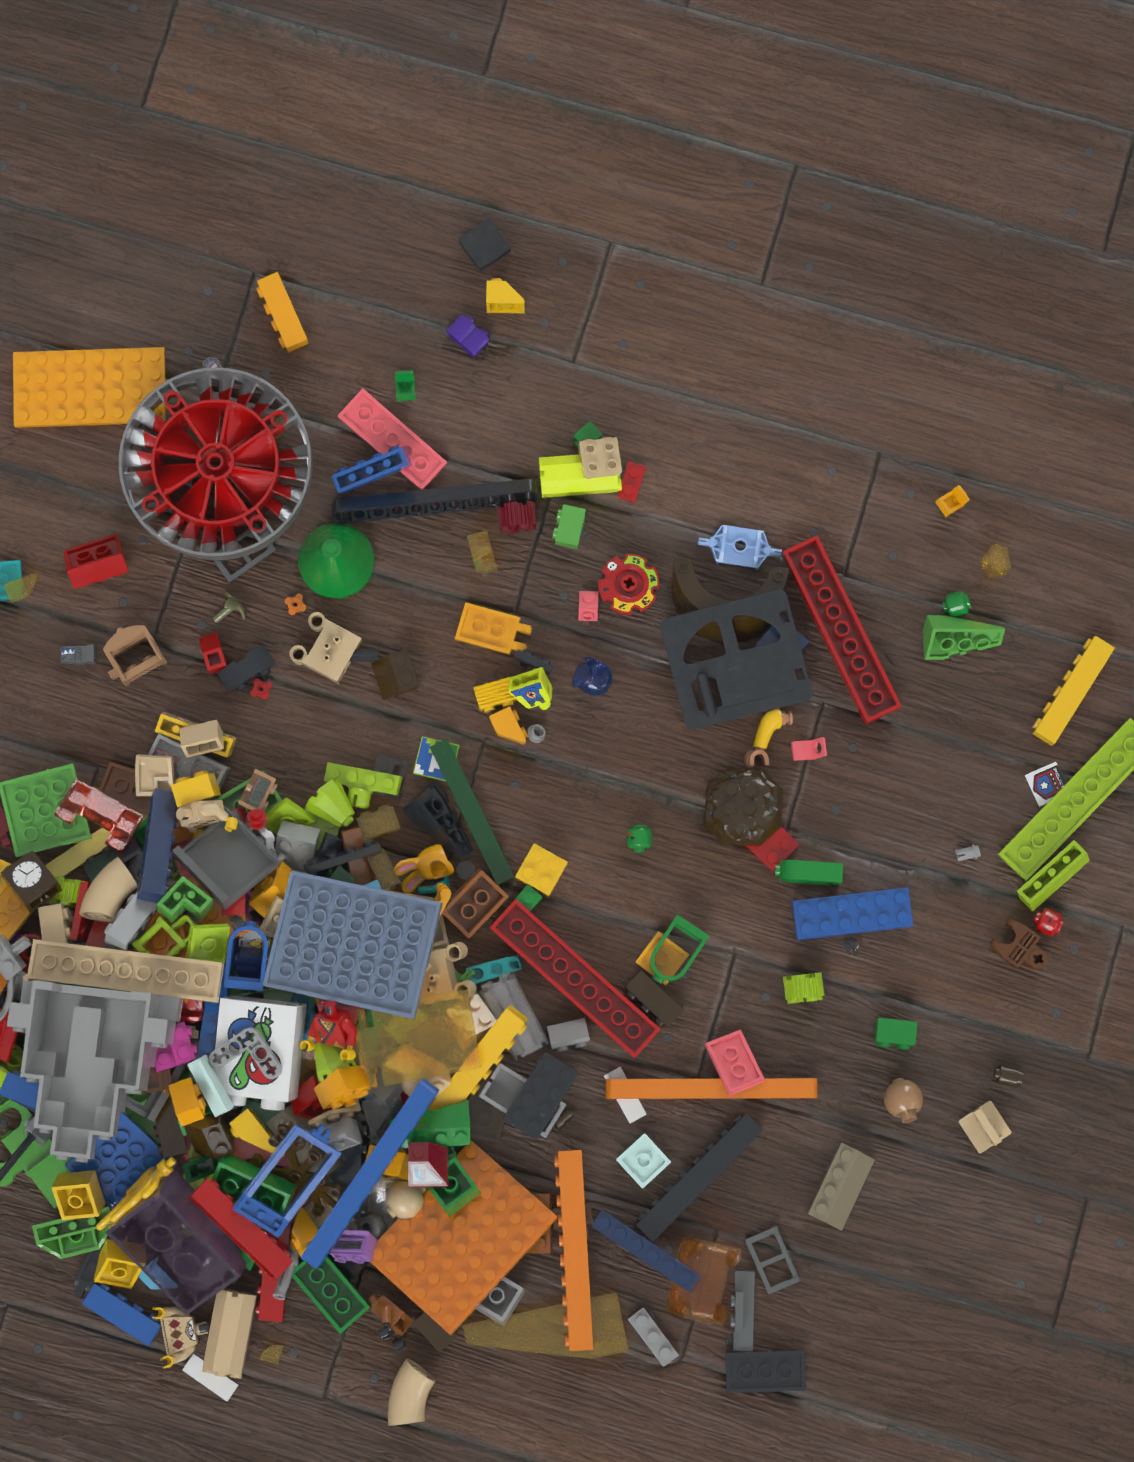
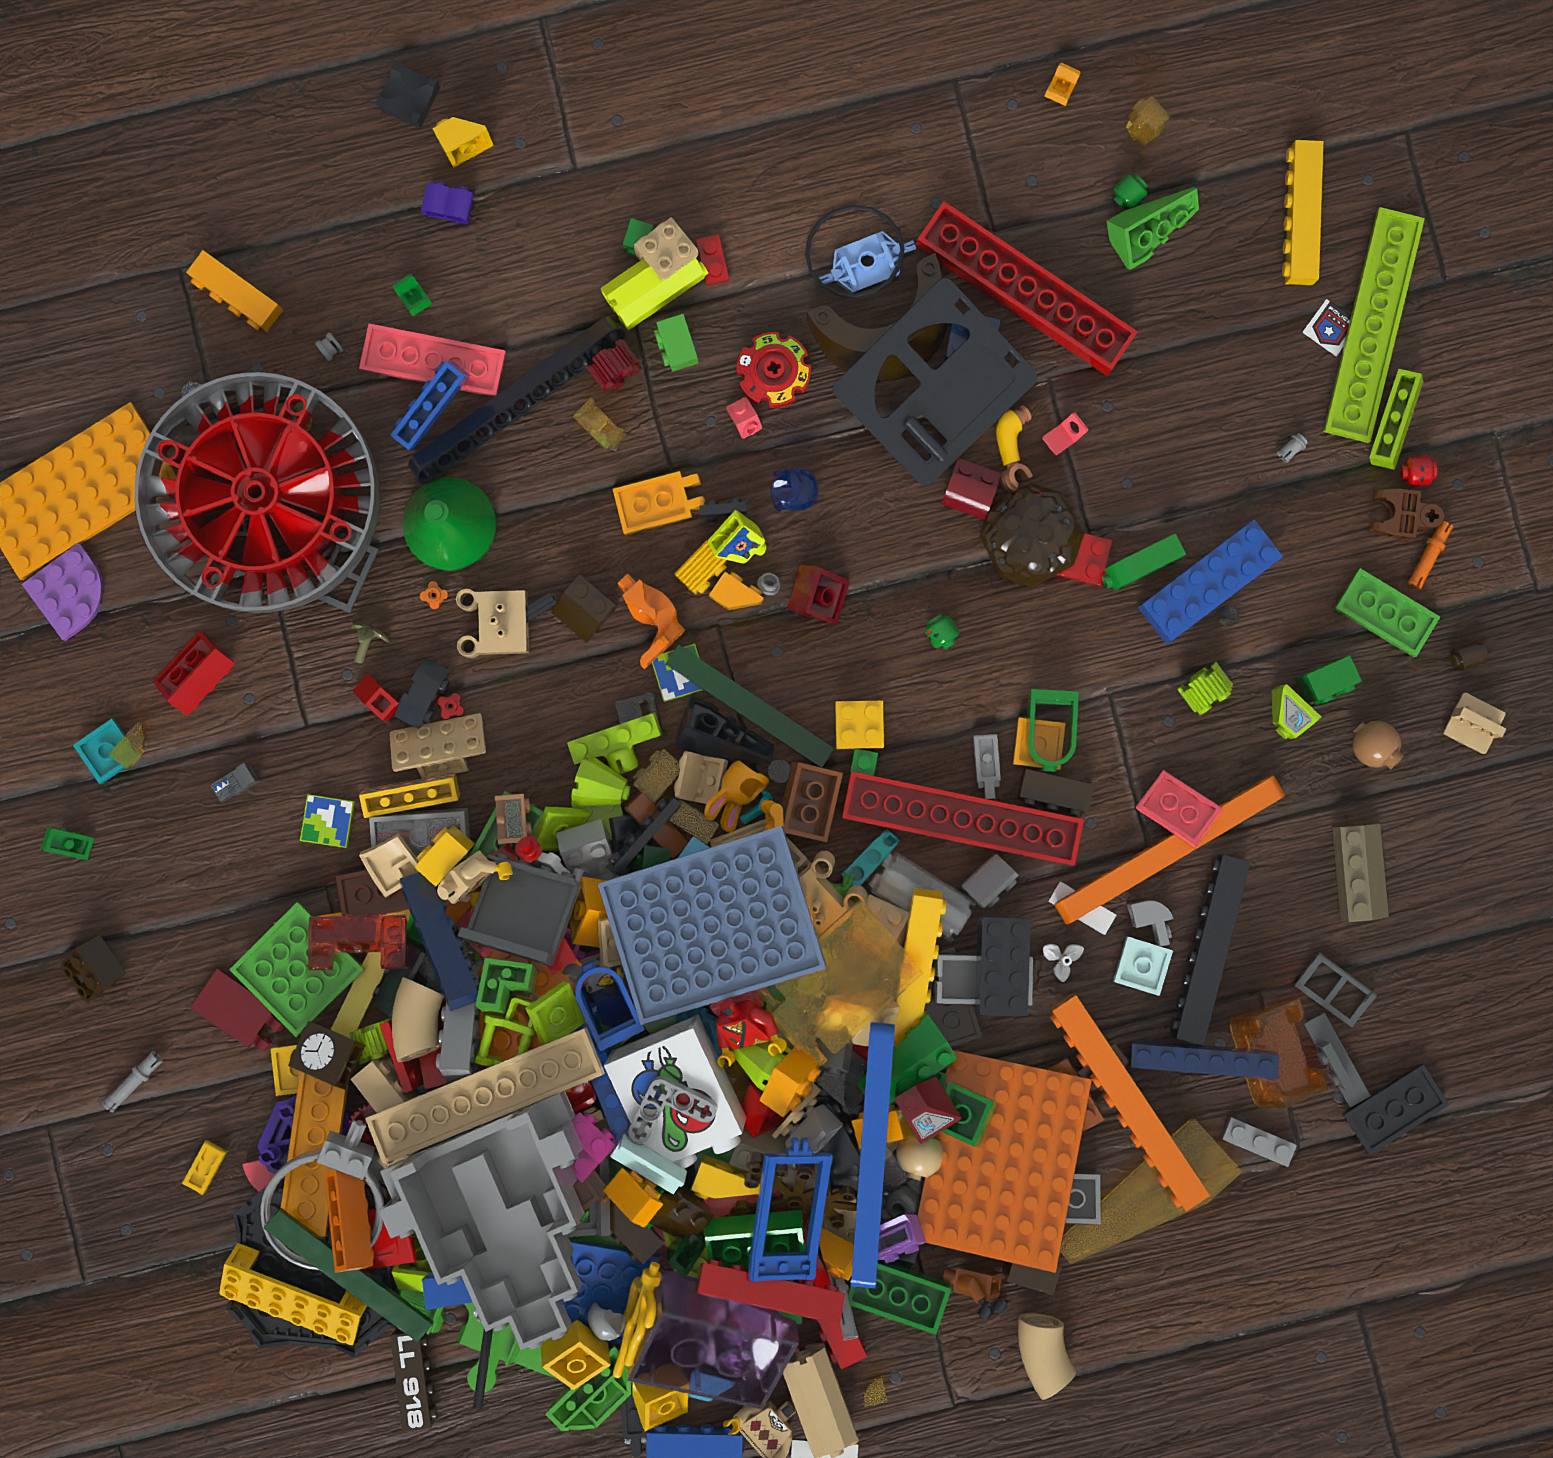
camera: 30 degrees left, 5 degrees up
(42, 453) = (68, 591): none -> medium lavender plate
(113, 1185) = (605, 1323): none -> light grey piece
(125, 640) = (274, 739): medium nougat animal -> none
(126, 719) = (327, 821): none -> tile
(201, 738) = (418, 797): tan brick -> none
(236, 711) = (438, 746): none -> tan bracket
(323, 388) = (327, 348): none -> light grey wheel
(406, 840) = (699, 777): none -> tan bracket
(444, 703) = (654, 609): none -> orange hips
(567, 761) = (818, 594): none -> dark red slope
(597, 1122) = (1071, 953): none -> white plant
(616, 951) = (987, 763): none -> light grey hinge
(673, 1127) = (1154, 914): none -> light grey brick
(720, 749) = (971, 489): none -> dark red brick
(724, 567) = (853, 295): none -> black piece
(854, 1042) = (1291, 712): none -> lime slope
(967, 1010) = (1387, 612): none -> bright green plate
(1029, 983) = (1434, 546): none -> orange pin

